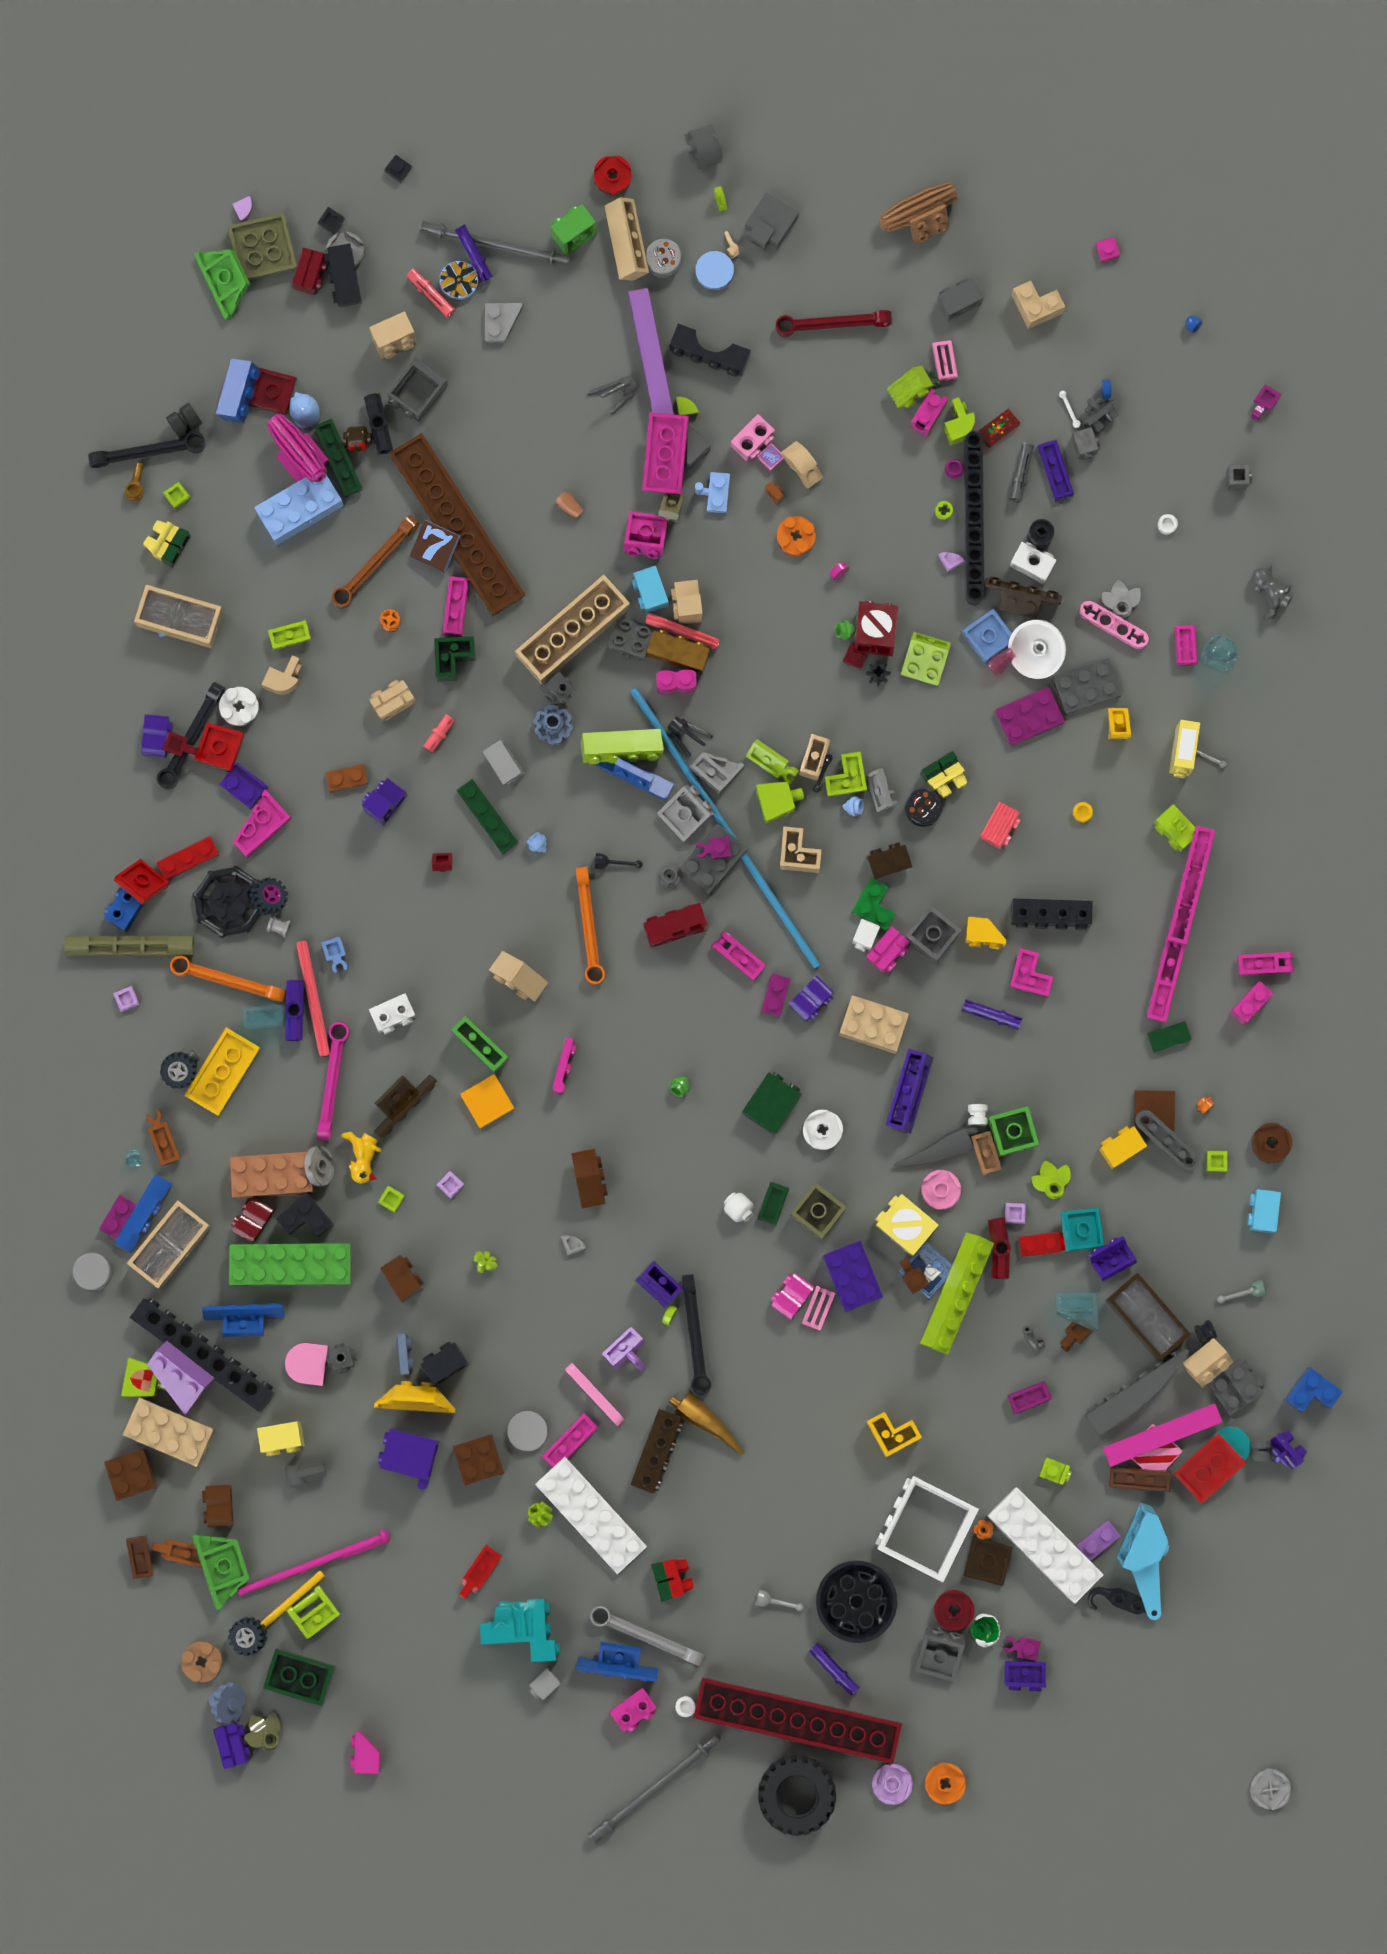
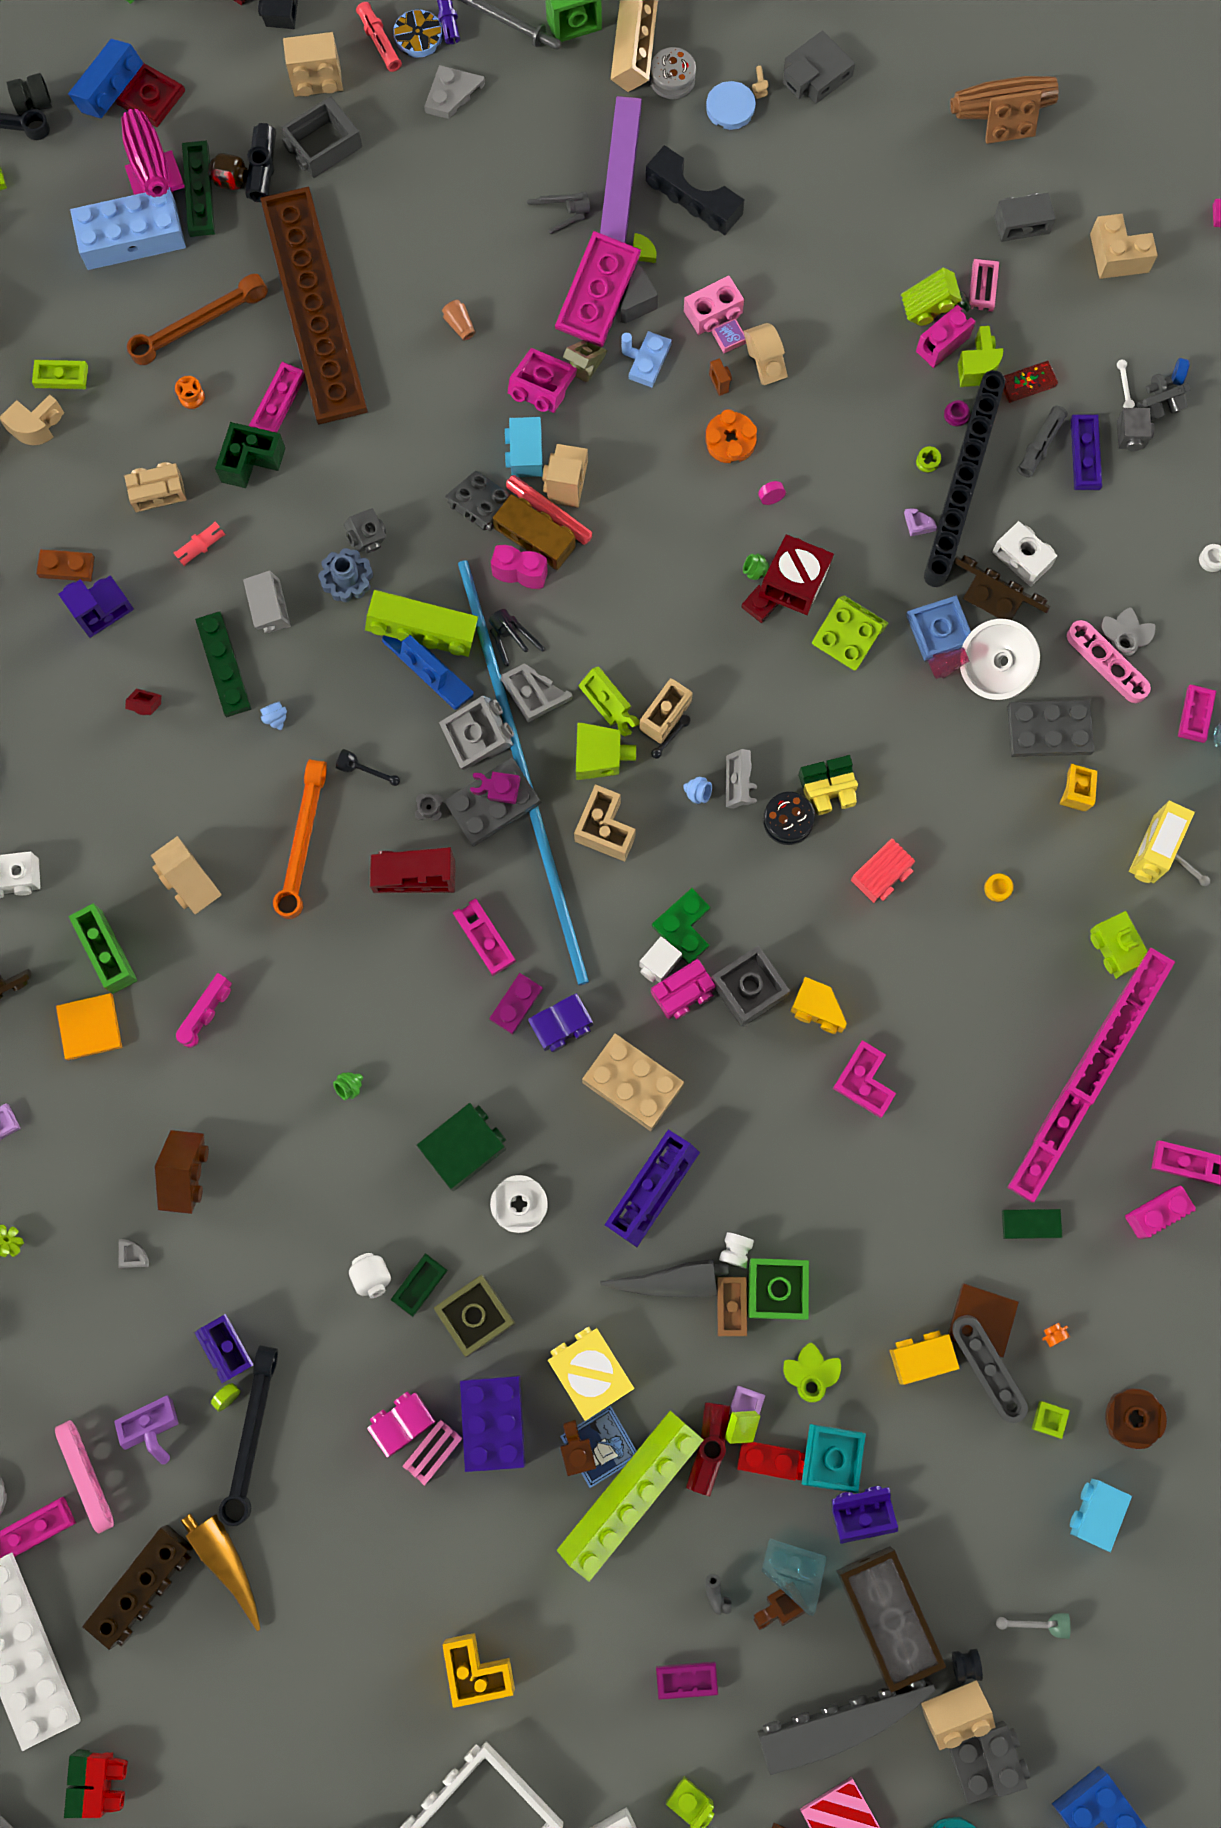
camera: 20 degrees right, 5 degrees down
(304, 410) = (178, 125): light blue hair -> none
(435, 546) = (276, 319): reddish brown tile -> none
(572, 629) = (410, 464): tan brick -> none
(720, 198) = (764, 25): lime tile -> none
(851, 781) = (706, 755): lime plate -> none
(878, 319) = (918, 211): dark red piece -> none
(878, 666) = (782, 624): black gear -> none
(889, 861) = (722, 873): dark brown bracket -> none
(941, 1189) = (654, 1338): bright pink tile -> none
(994, 1015) = (796, 1117): dark purple pin -> none
(1016, 1227) = (742, 1427): none -> lime tile
(1029, 716) = (964, 744): magenta plate -> none
(1041, 534) = (1047, 518): black wheel -> none
(1051, 913) = (919, 1007): black brick -> none
(1162, 1435) = (861, 1802): dark pink tile -> none

